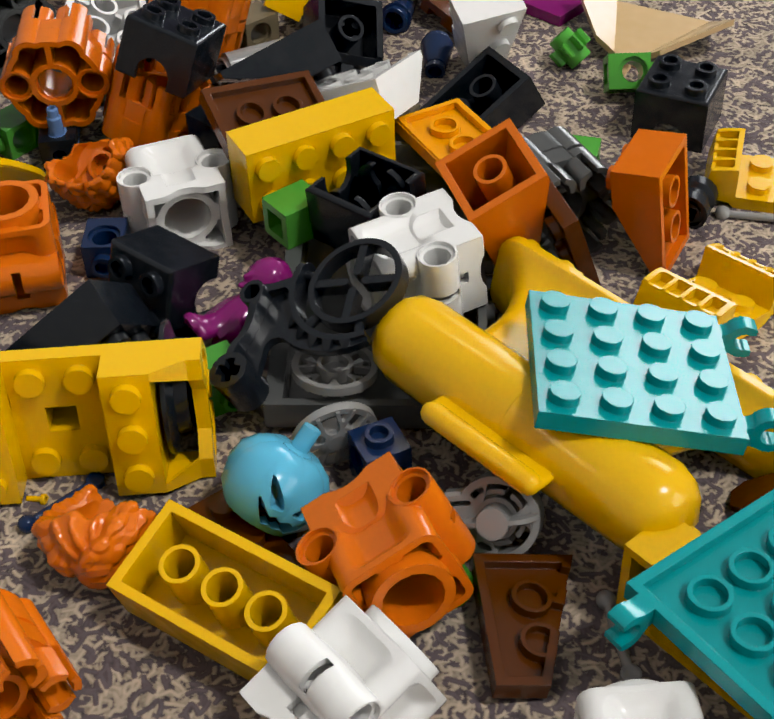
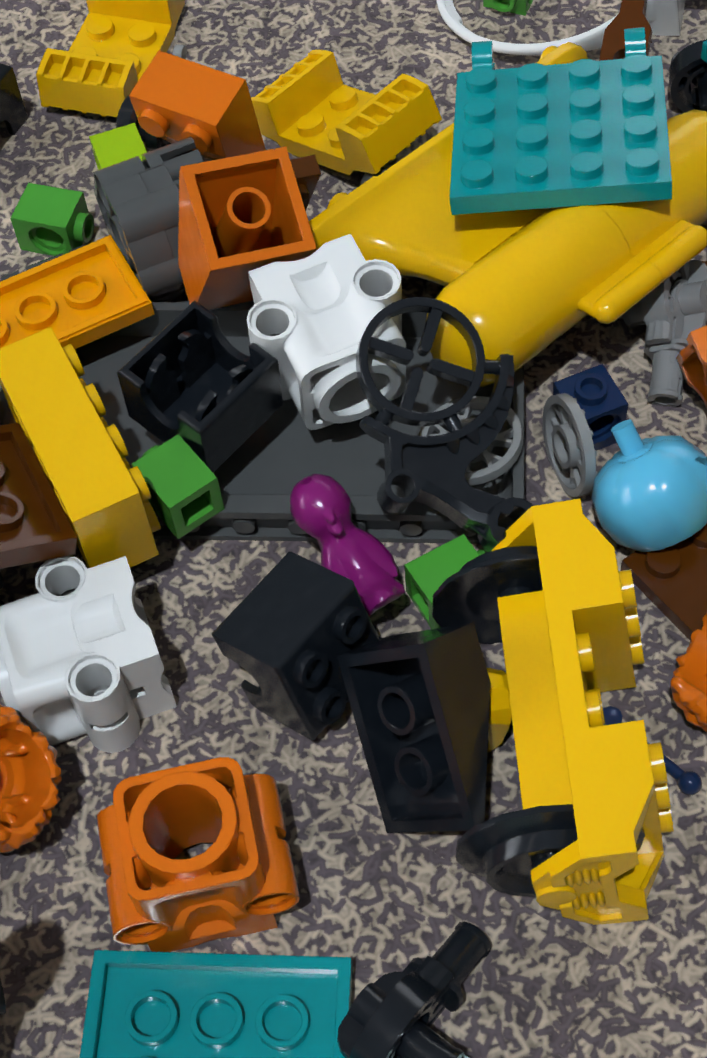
camera: 85 degrees left, 15 degrees up
(97, 243) = (147, 739): dark blue brick -> none

